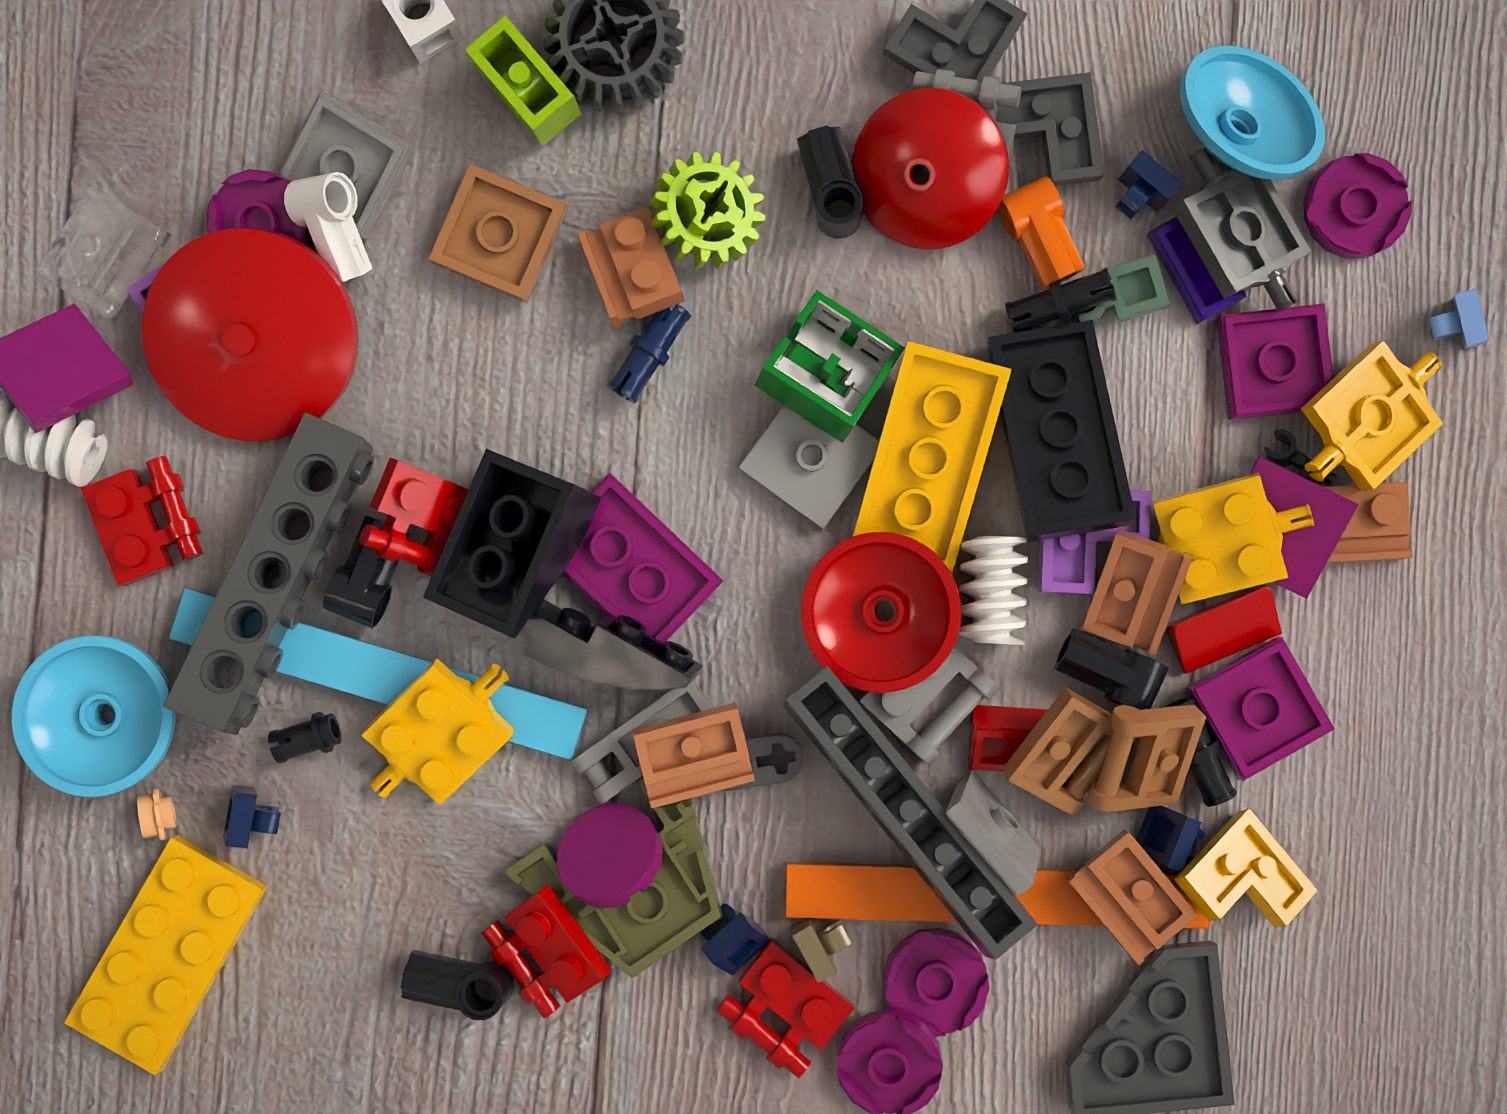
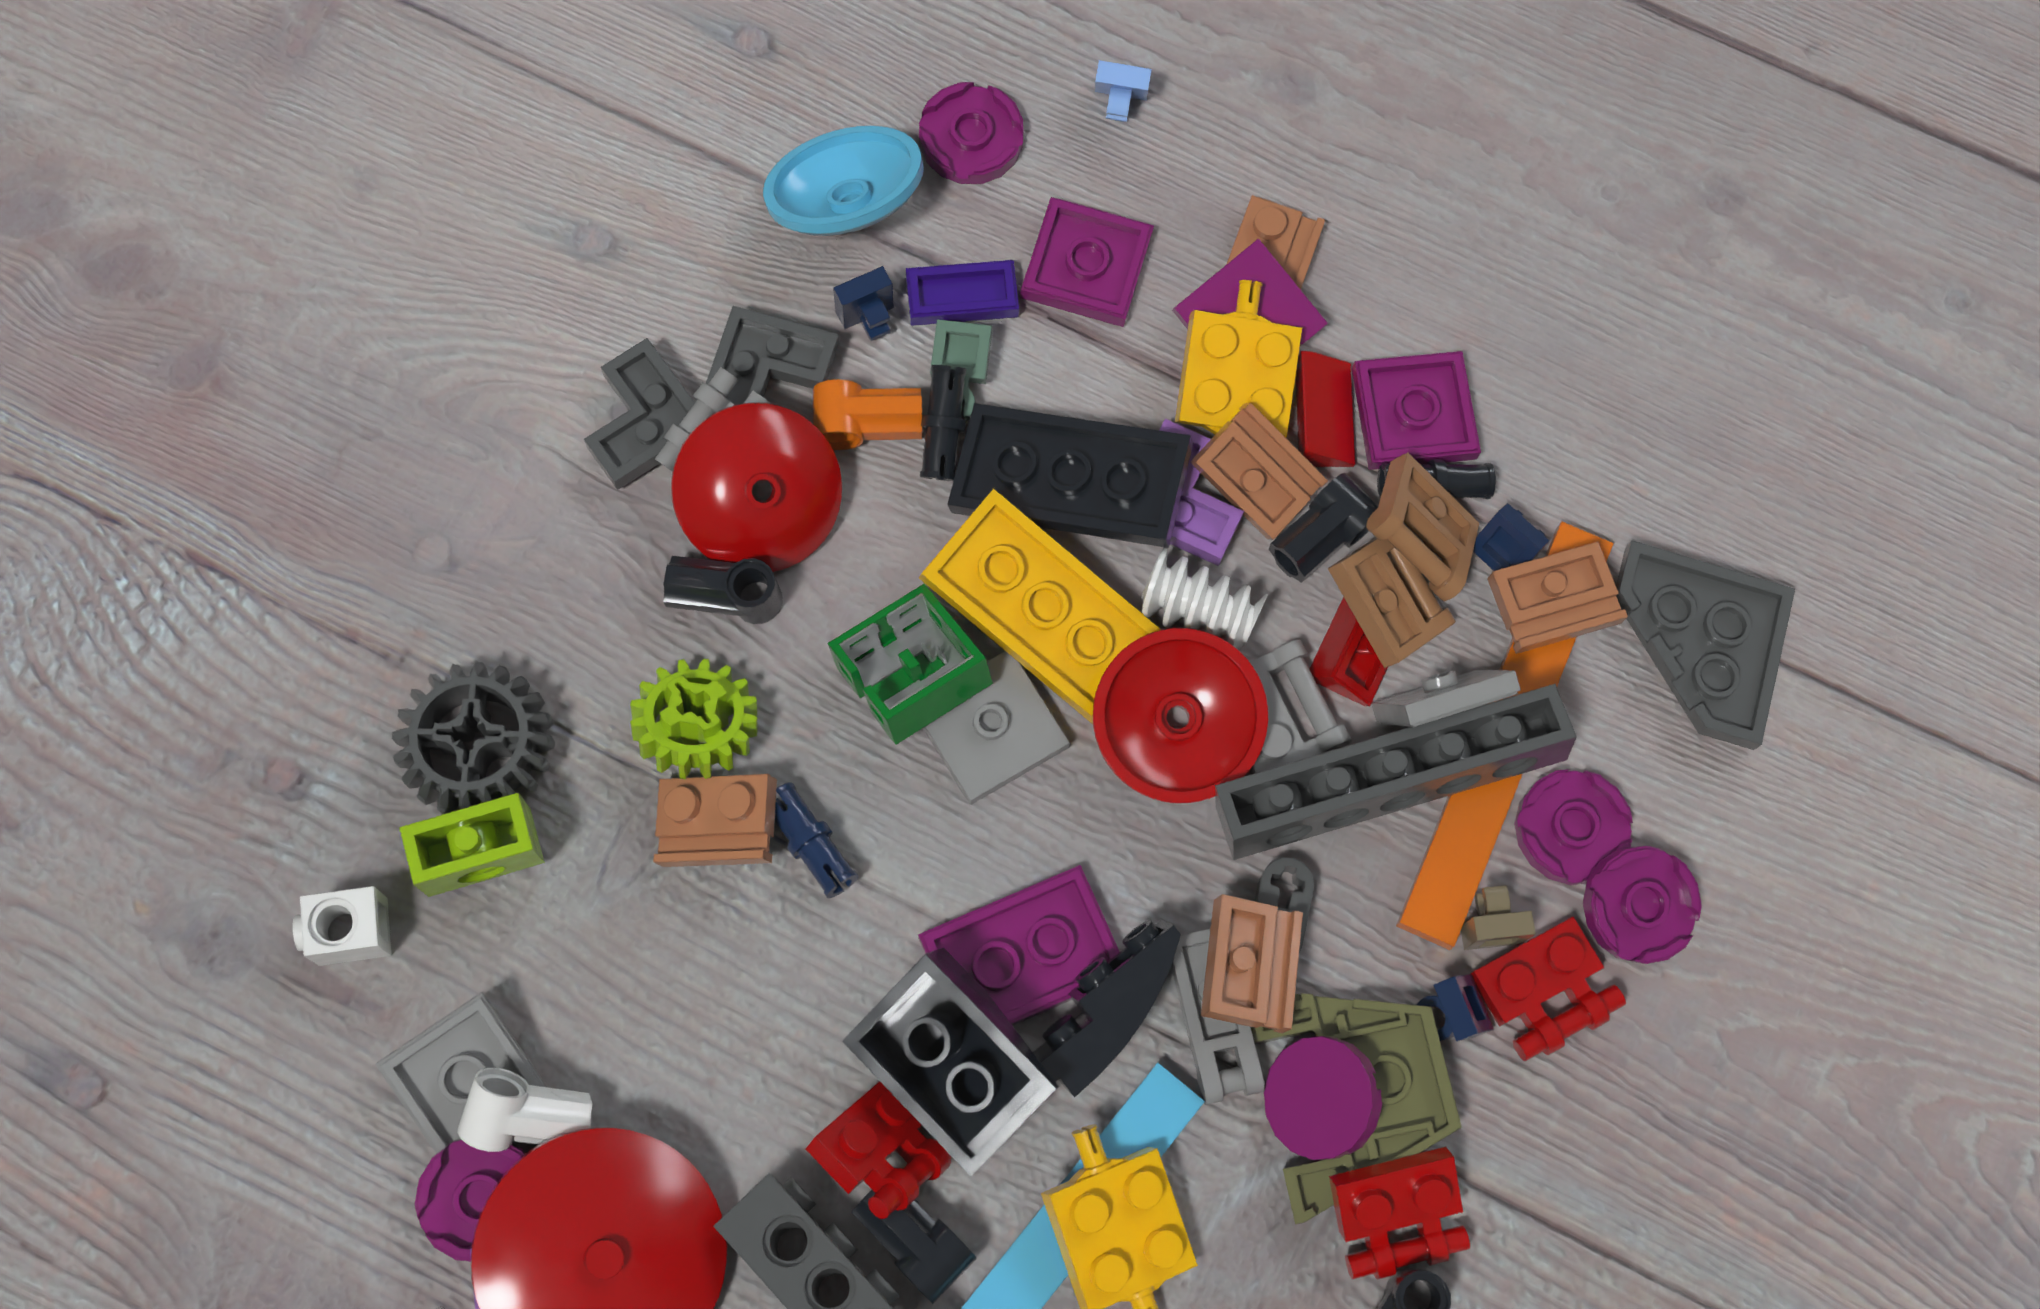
camera: 75 degrees left, 15 degrees down
(498, 233) = (614, 943): medium nougat plate -> none
(1241, 231) = (951, 236): dark grey plate -> none
(1248, 861) = (1561, 486): yellow plate -> none
(1293, 455) = (1188, 279): black hand -> none
(1372, 416) = (1177, 197): yellow plate -> none

